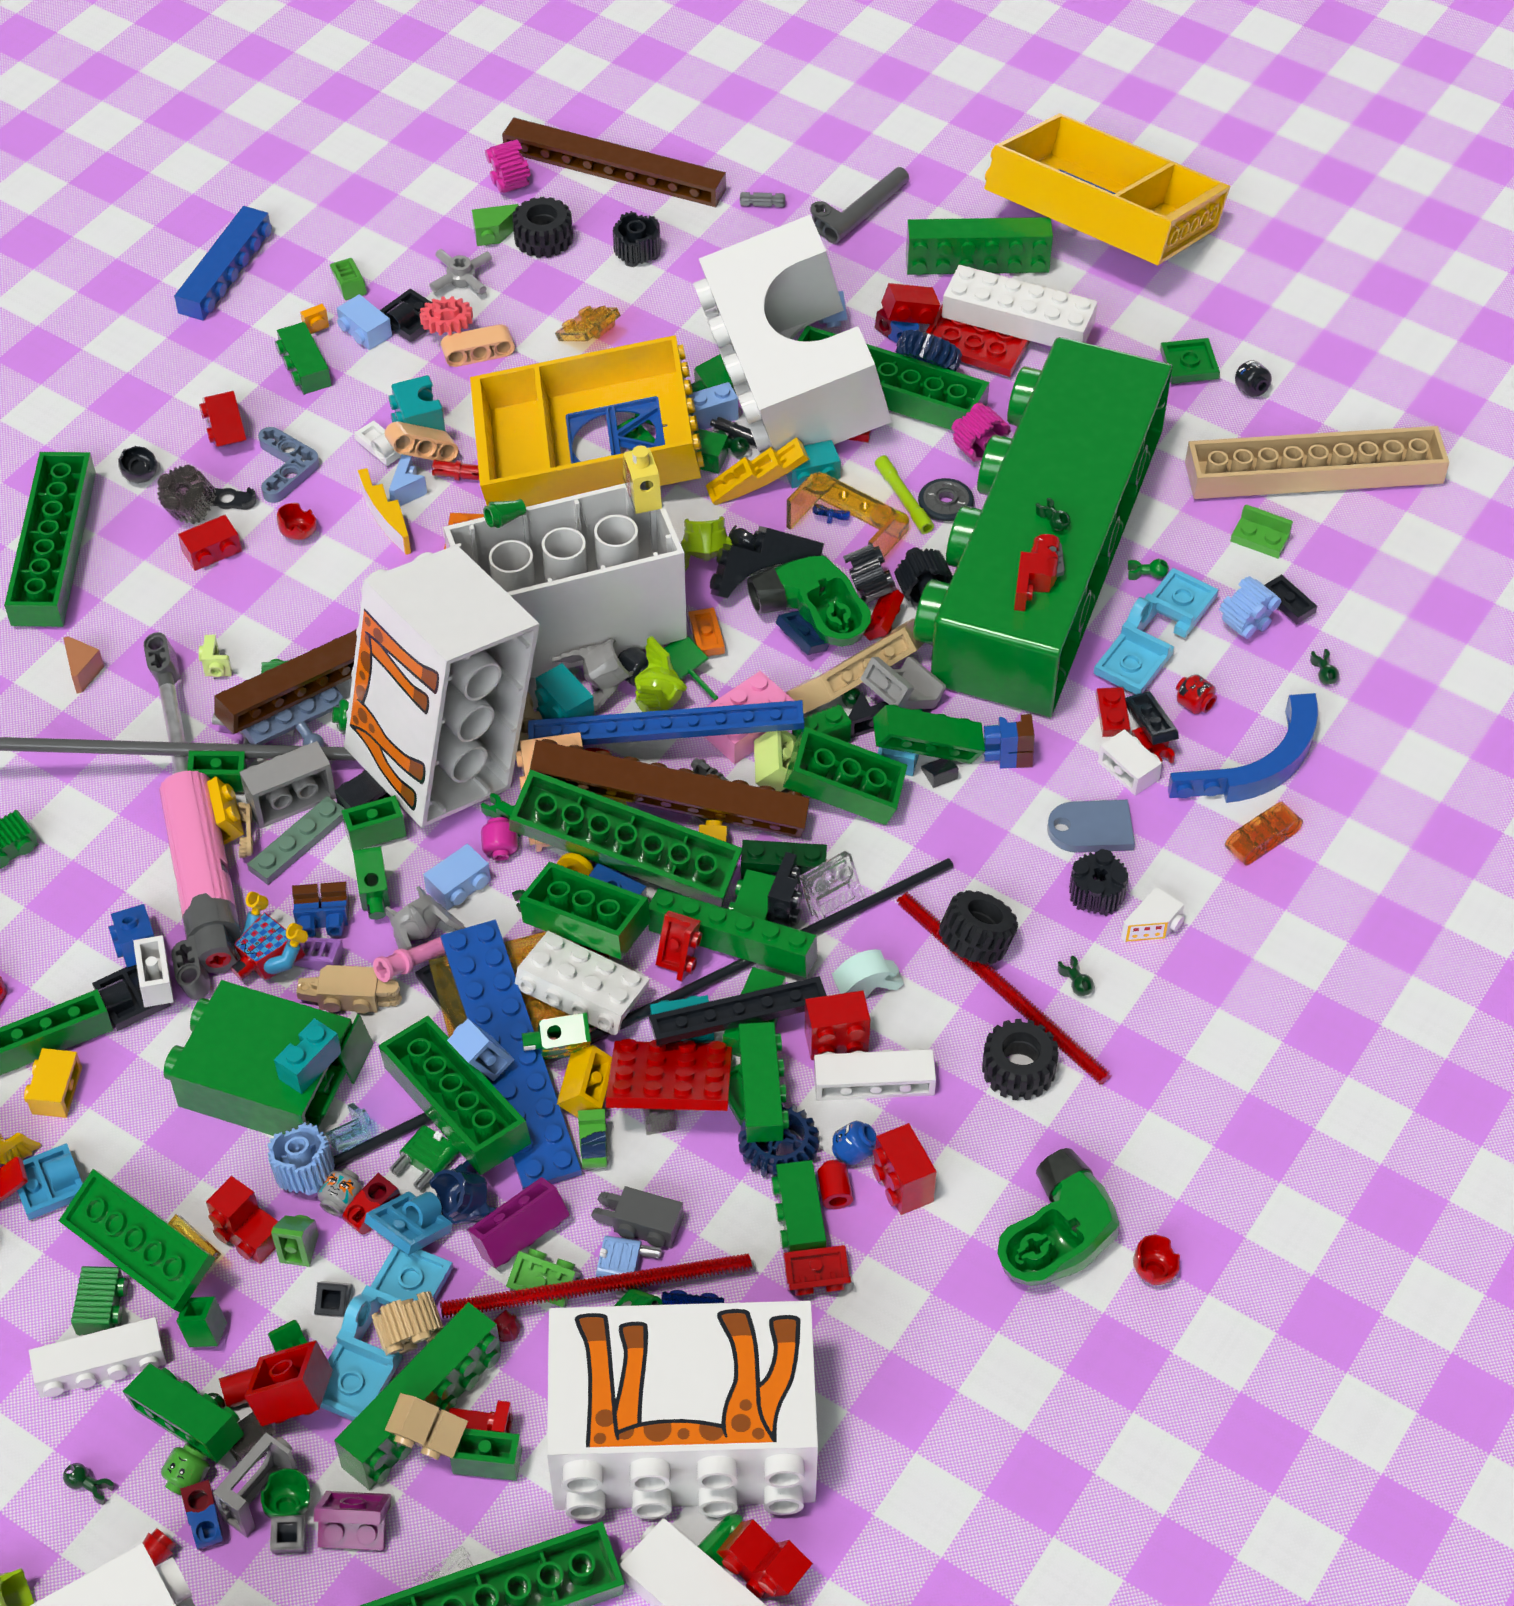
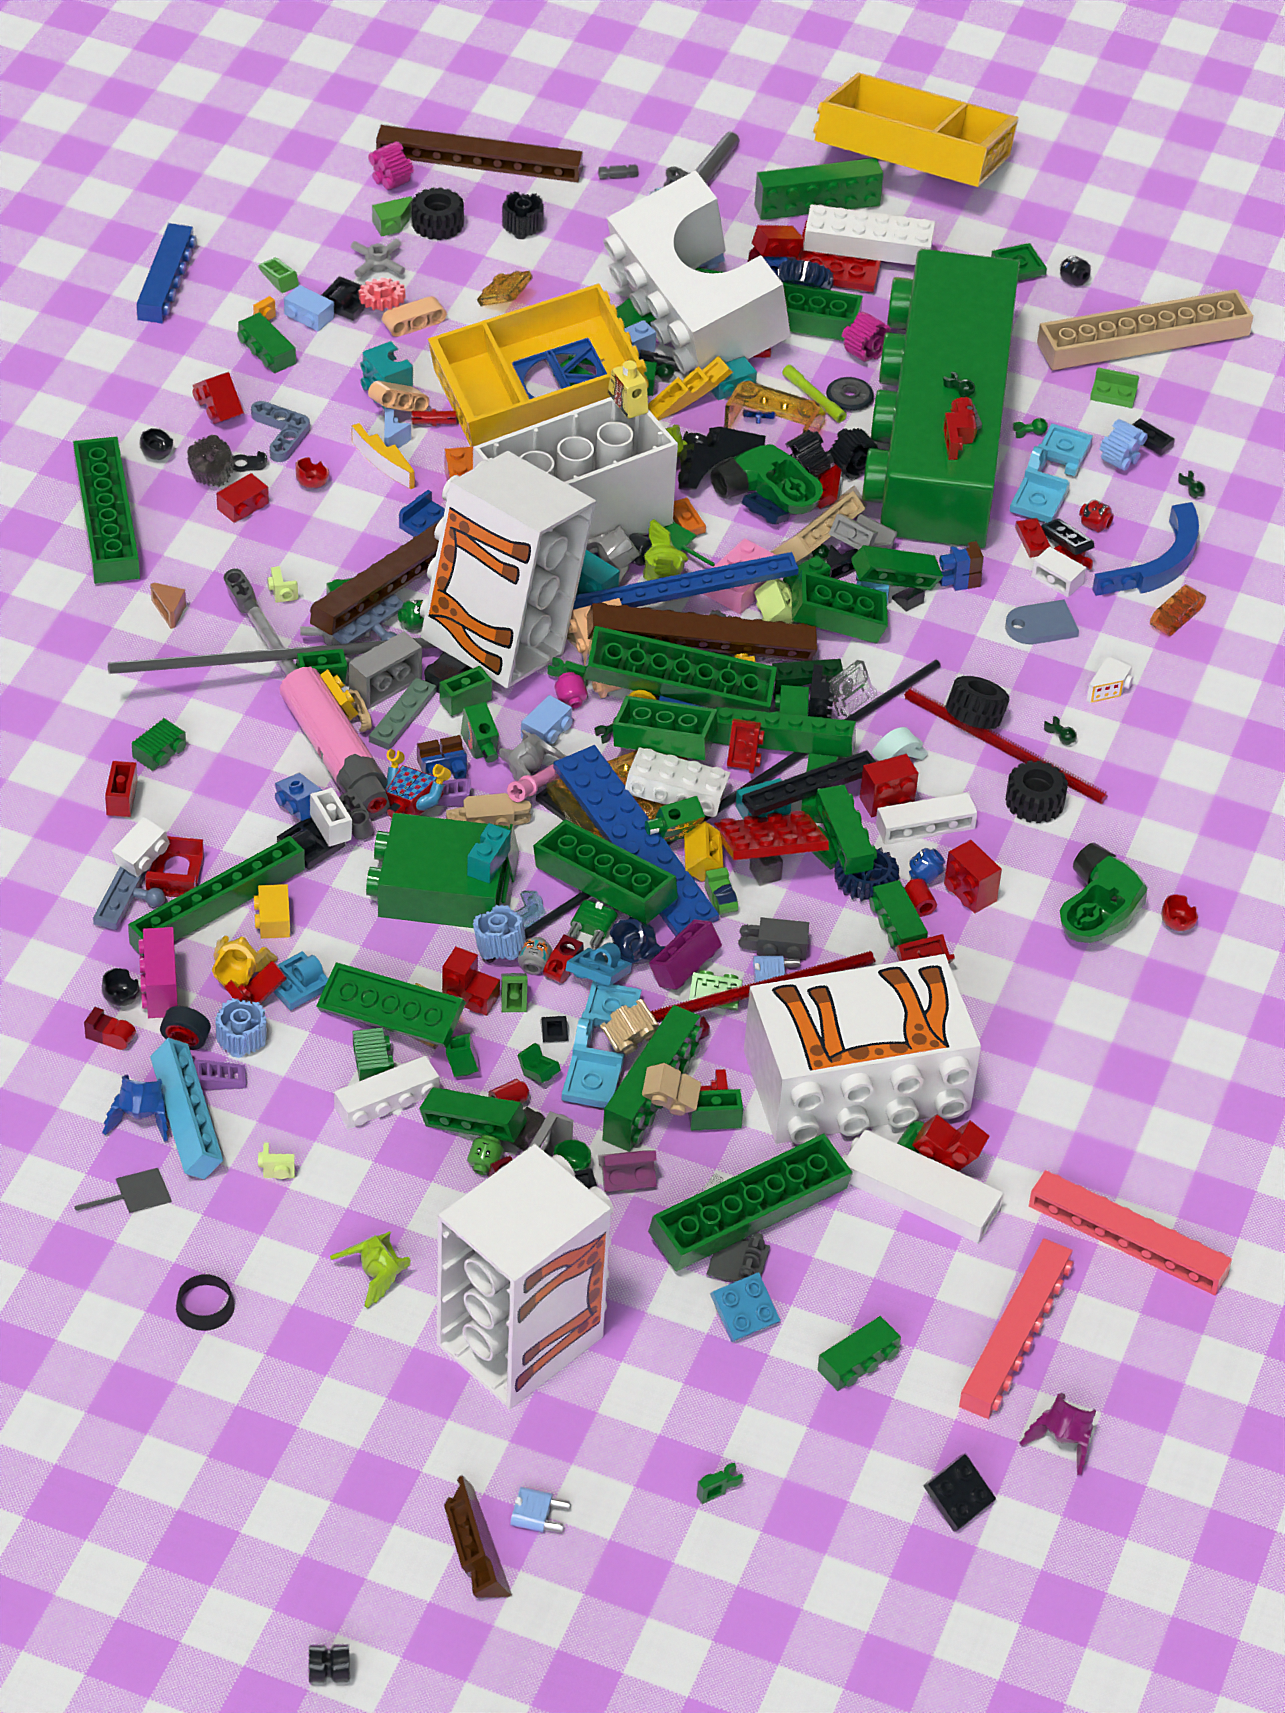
camera: 15 degrees left, 5 degrees down
(80, 1478) = (401, 1173): dark green arm -> none
(288, 1383) = (551, 1081): red brick -> none
(374, 440) = (358, 403): white plate -> none
(480, 1049) = (620, 831): light blue brick -> none
(502, 512) = (520, 429): green cone -> none
(1098, 883) = (1060, 660): black brick -> none

